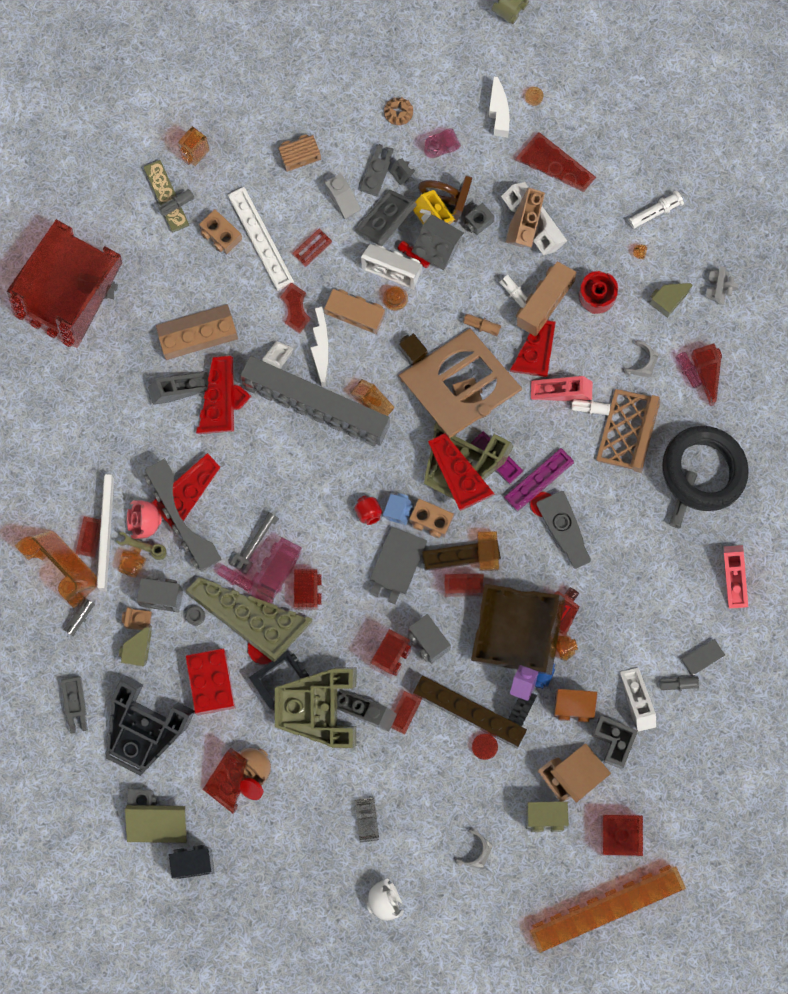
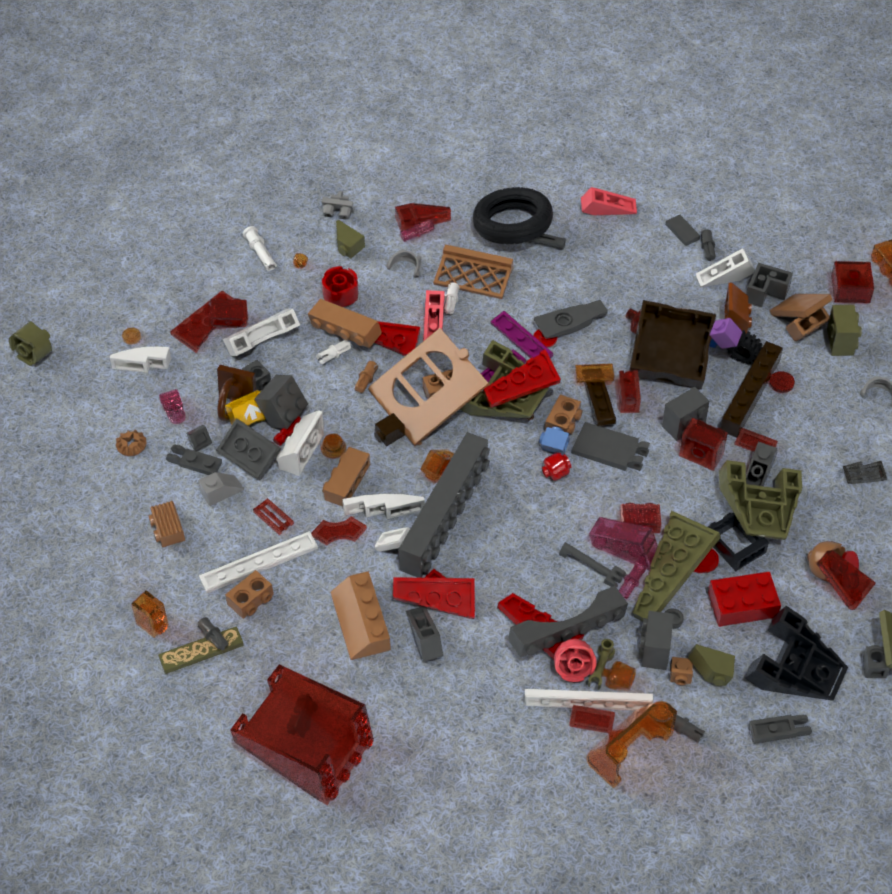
camera: 90 degrees left, 25 degrees down
(525, 221) = (267, 336): medium nougat slope -> none
(558, 183) = (227, 312): none -> clear red brick

